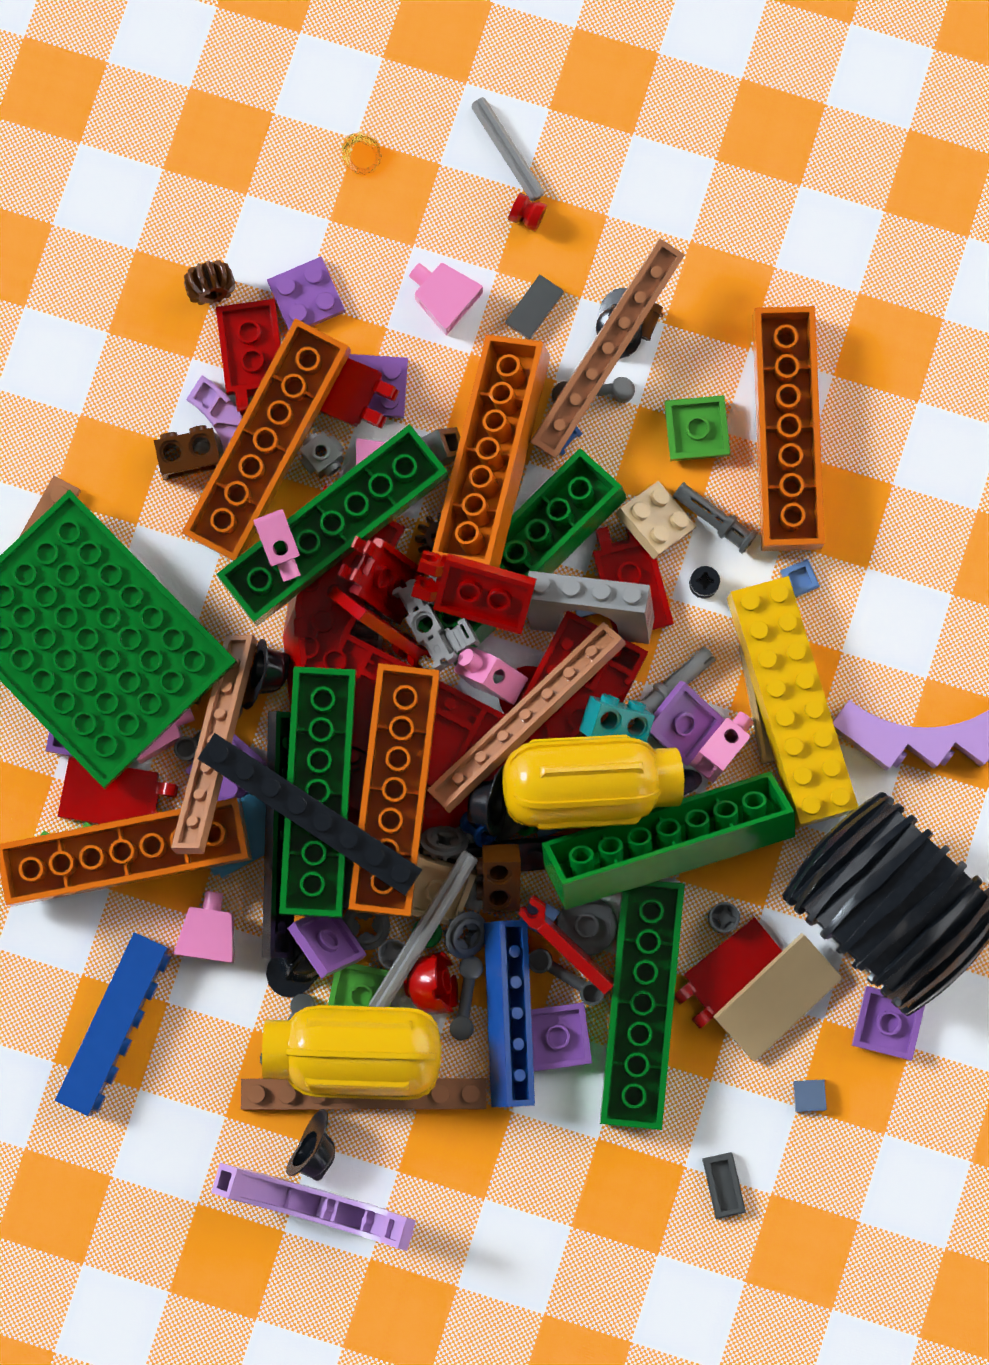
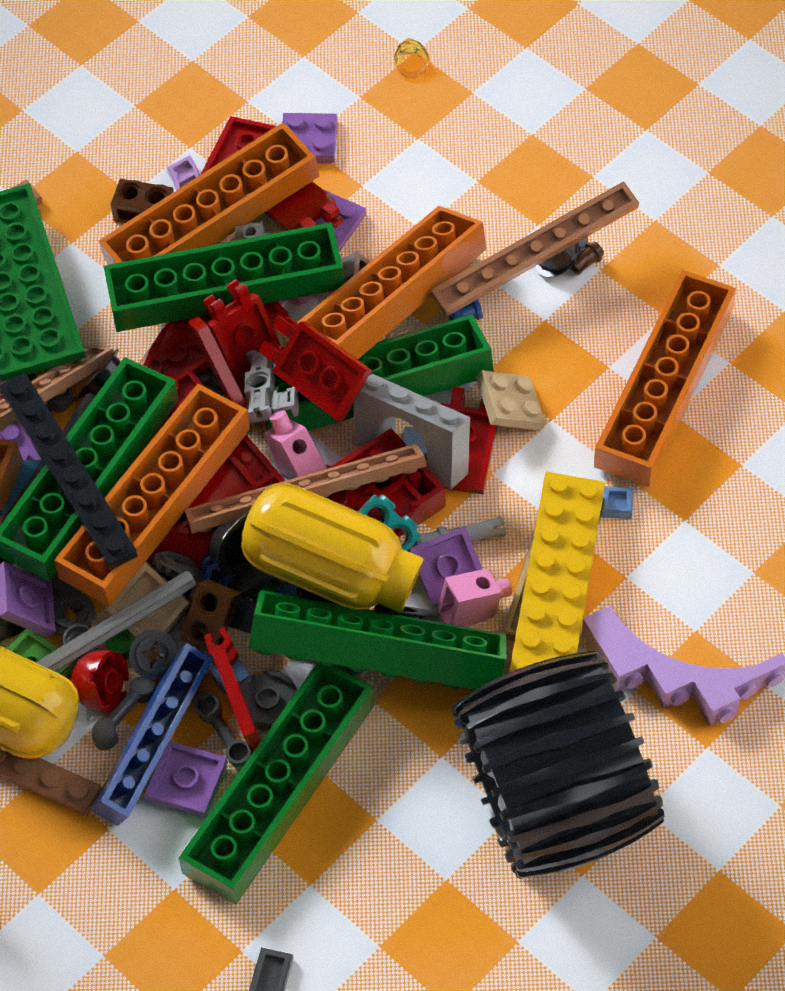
camera: 30 degrees right, 25 degrees down
(209, 282) = (234, 92): reddish brown gear -> none
(275, 528) = (166, 249): bright pink torso -> none
(445, 294) = (424, 175): bright pink torso -> none
(507, 149) = (534, 100): light grey axle -> none
(527, 212) = (525, 144): red wheel -> none
(534, 307) = (498, 212): dark grey tile -> none
(621, 390) = (535, 297): dark grey bar -> none
(697, 428) = (585, 350): bright green plate -> none
(704, 588) = (530, 475): black wheel -> none
(726, 529) = (571, 432): dark grey pin -> none
(726, 914) = (393, 737): dark grey wheel -> none
(728, 969) = (379, 798): red tile -> none
(778, 997) = (411, 834): tan tile -> none
(809, 1095) = (395, 938): sand blue tile -> none
(884, 1027) = (506, 905): medium lavender plate -> none

